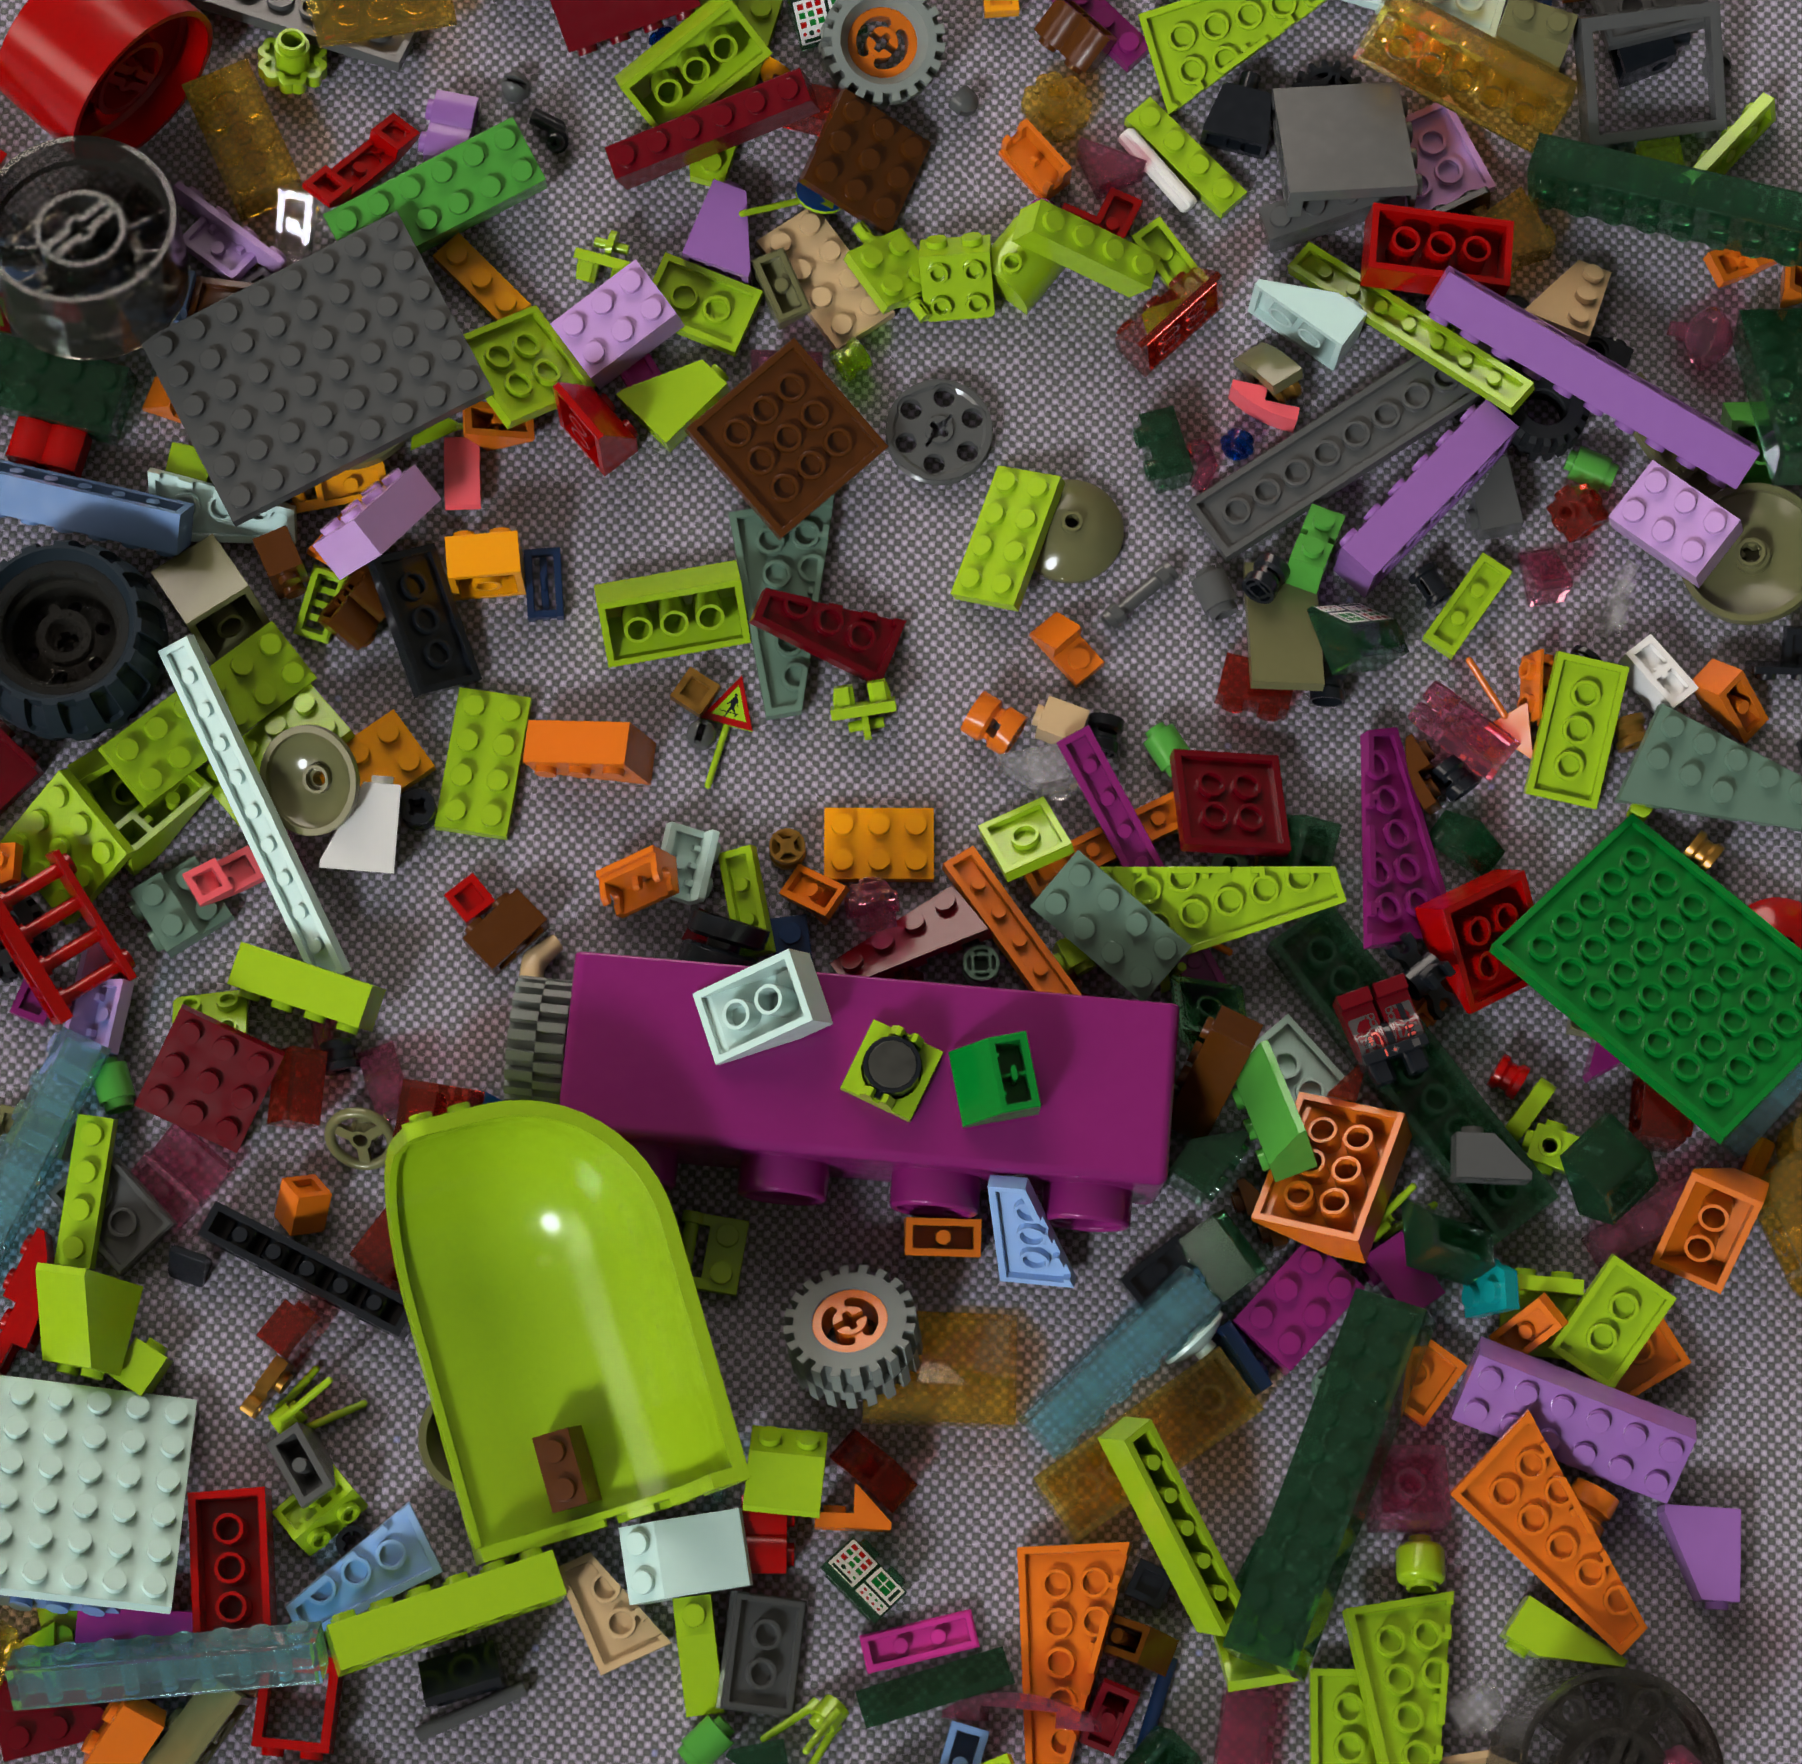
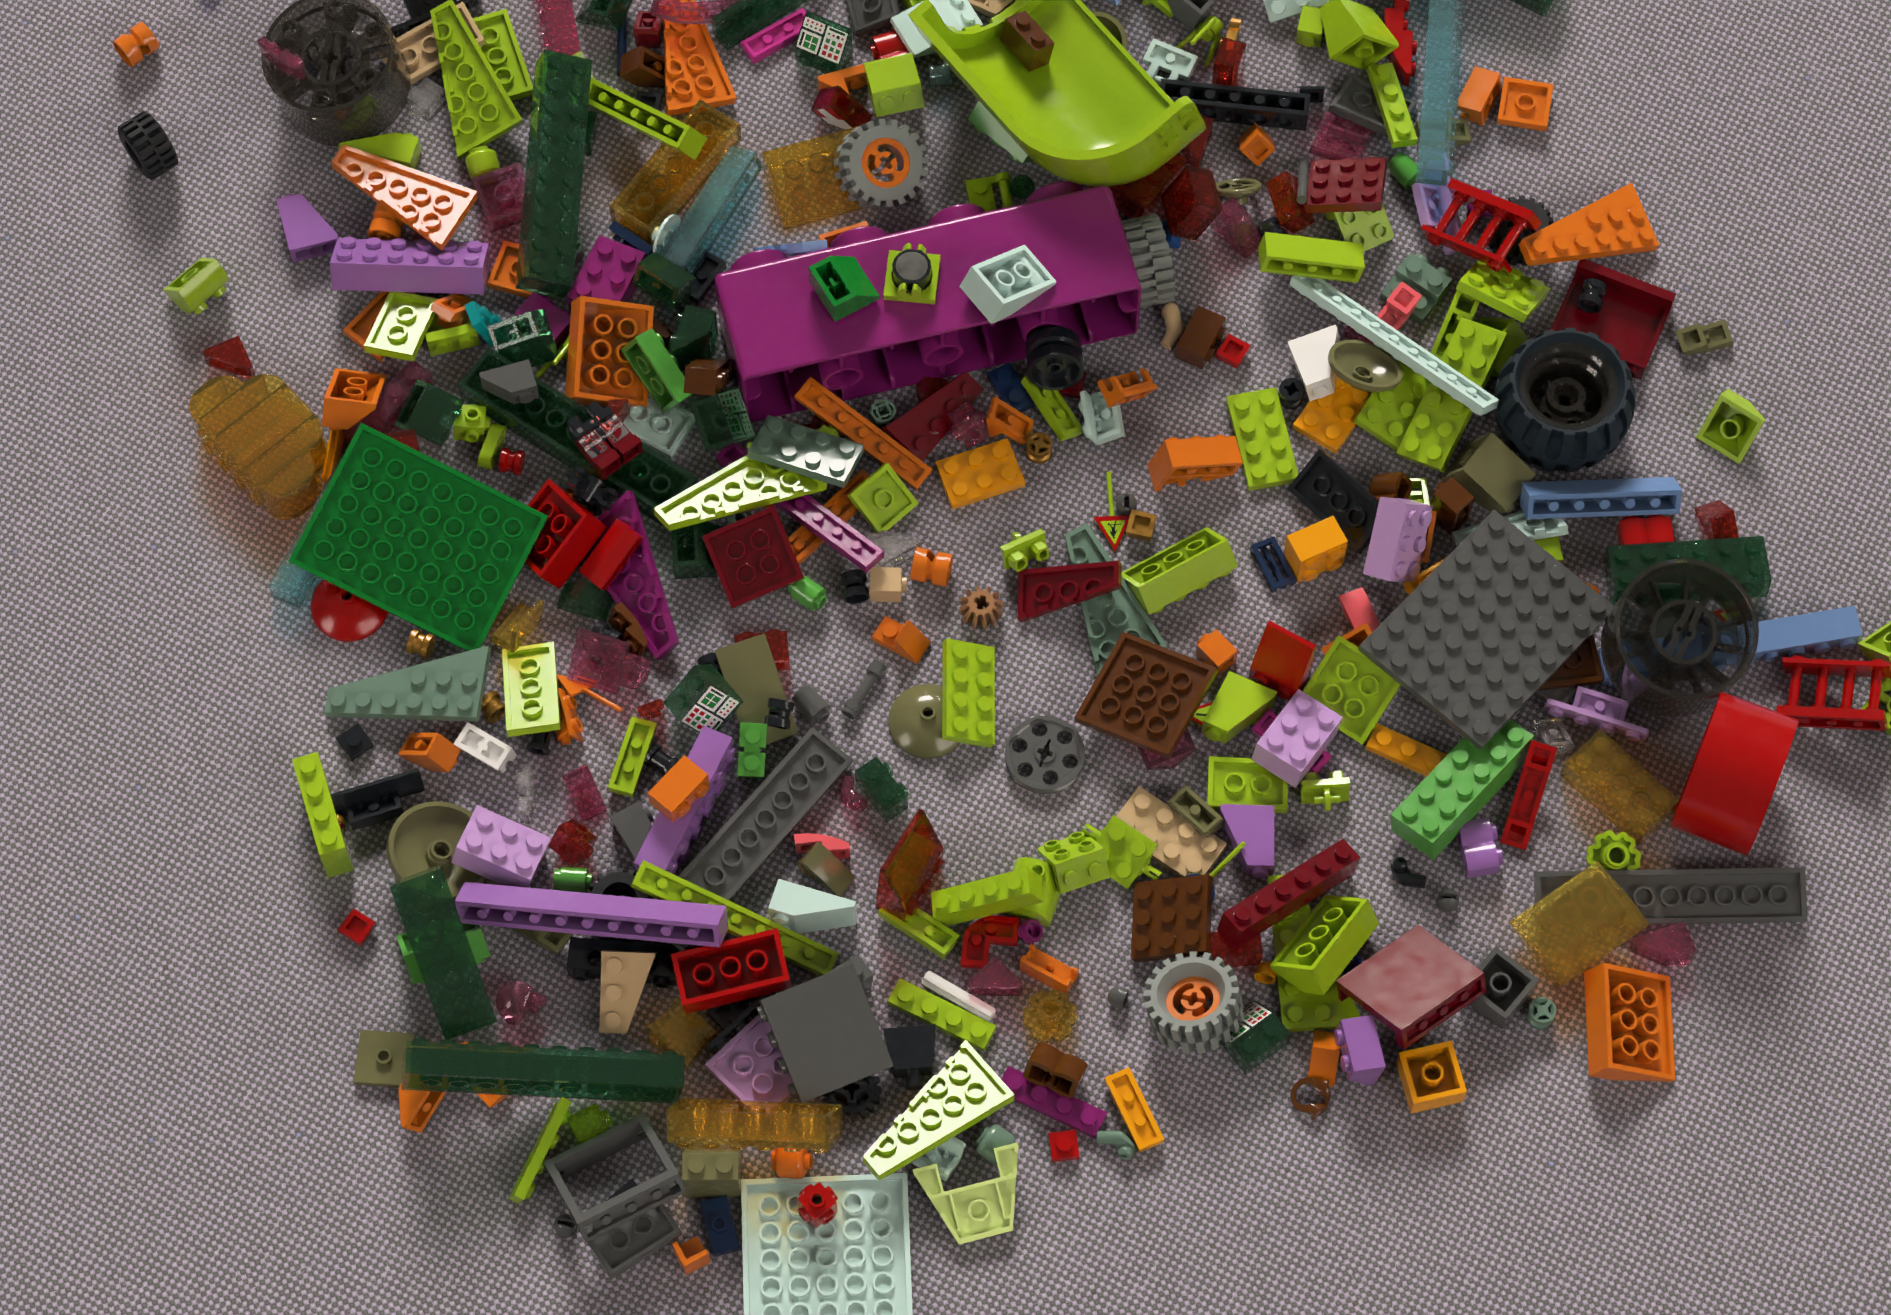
camera: 165 degrees right, 10 degrees down
(266, 1111) = (1302, 180): none -> dark grey bar
(368, 1384) = (1170, 60): none -> light aqua plate
(669, 484) = (1216, 651): none -> orange brick
(850, 359) = (1126, 780): clear neon green wheel -> none
(949, 662) = (986, 615): none -> medium nougat gear
(1237, 444) = (831, 813): clear blue plate -> none
(1417, 872) = (611, 554): none -> red piece
(1425, 658) = (651, 709): none -> clear red plate
(1435, 488) = (679, 789): none -> orange brick
(1567, 830) = (518, 626): none -> clear yellow panel

